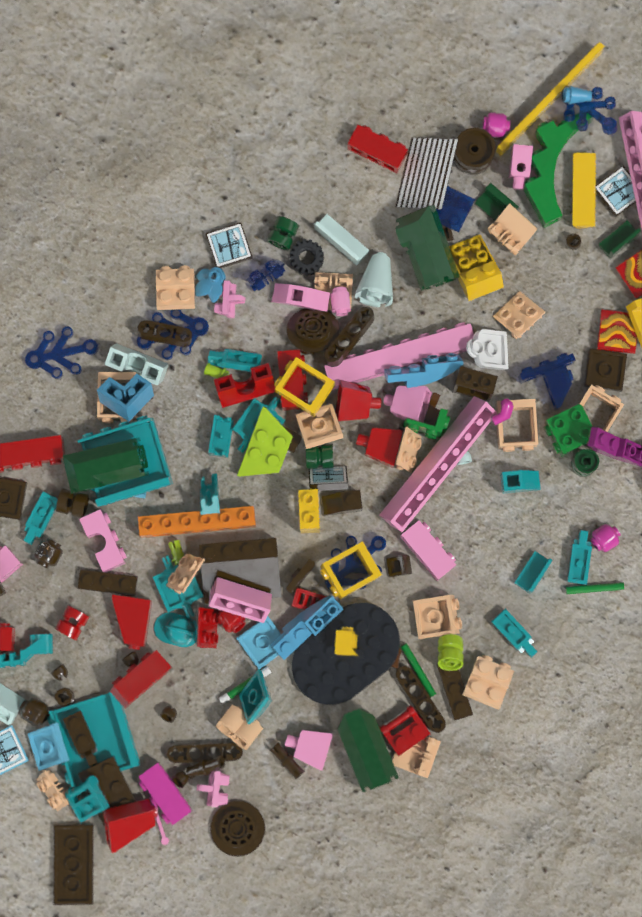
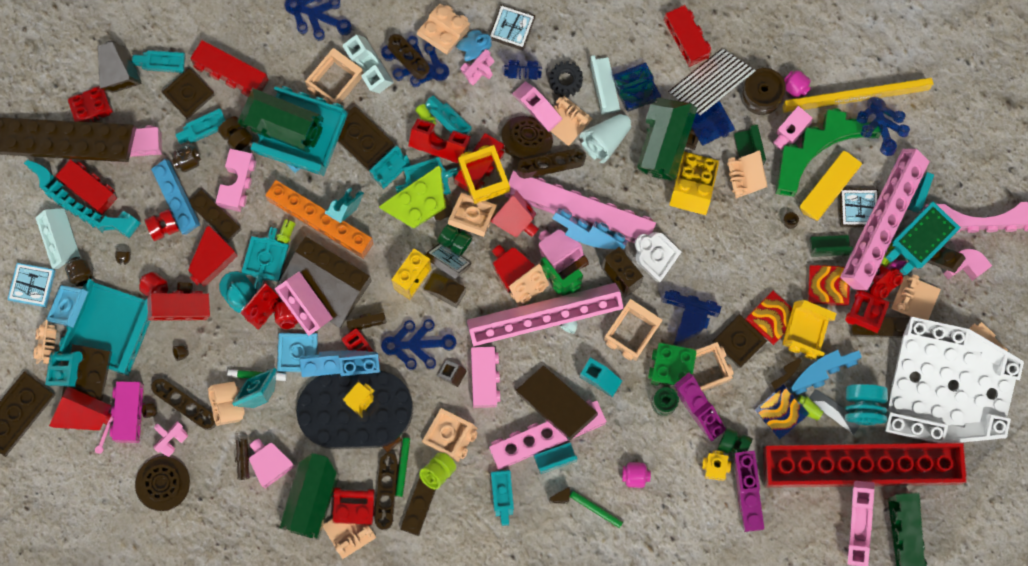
camera: 35 degrees right, 5 degrees down
(64, 591) = (175, 197): none -> dark azure plate
(70, 693) = (105, 278): dark brown bush -> none
(81, 737) = (98, 318): dark brown hinge -> none
(103, 676) = (152, 282): none -> red head
(126, 399) = (338, 82): dark azure brick -> none
(181, 429) = (363, 139): none -> dark brown plate
(184, 573) = (284, 245): light nougat hinge -> none
(205, 767) = (174, 414): dark brown pin -> none
(286, 227) = (566, 43): dark green wheel -> none
(340, 301) = (565, 131): bright pink brick -> none
(367, 561) = (427, 352): yellow window -> none
(368, 222) = (636, 87): none -> slope
(488, 681) = (451, 518): light nougat plate -> none
(502, 528) = (556, 402): none -> dark brown tile
(505, 413) = (628, 313): dark pink arm -> none
(519, 314) = (702, 246): light nougat hinge -> none
(541, 518) = (503, 459): none -> bright pink brick
(561, 599) = (561, 497): none -> dark brown slope
(576, 95) = (880, 105): dark azure cone -> none
(580, 559) = (601, 476): teal hinge -> none

